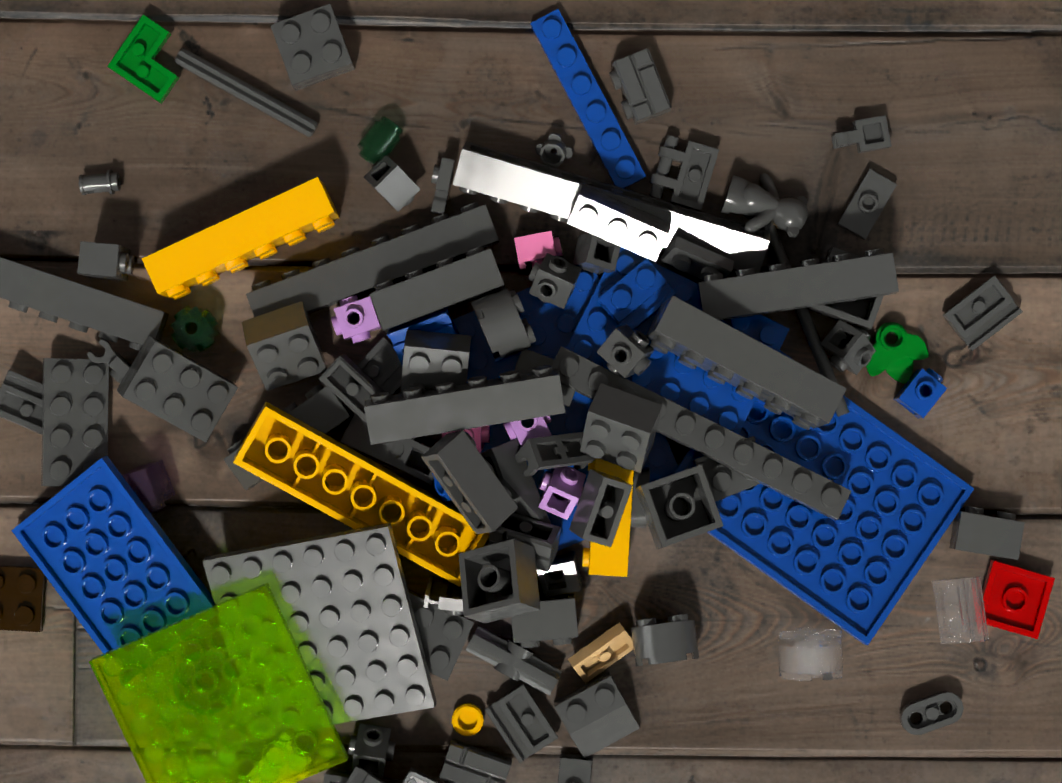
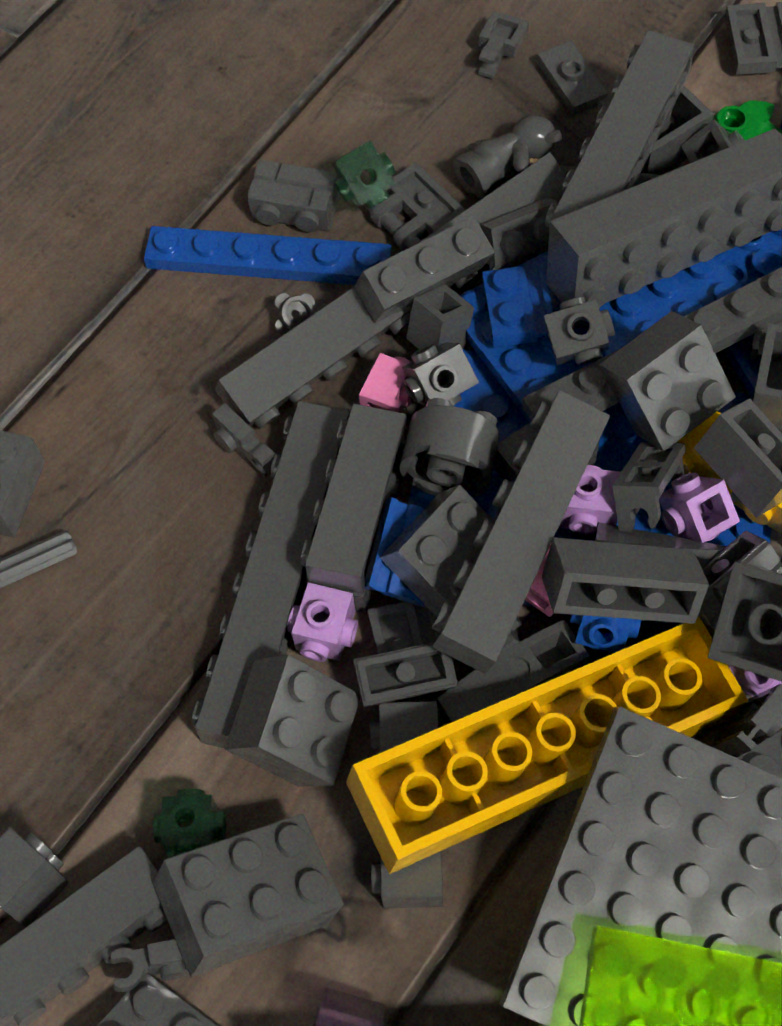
camera: 55 degrees left, 25 degrees down
(240, 239) = (124, 693): yellow brick -> none
(379, 140) = (141, 476): clear green brick -> none
(392, 183) = (198, 486): brick -> none
(674, 129) = (349, 172): none -> clear green brick

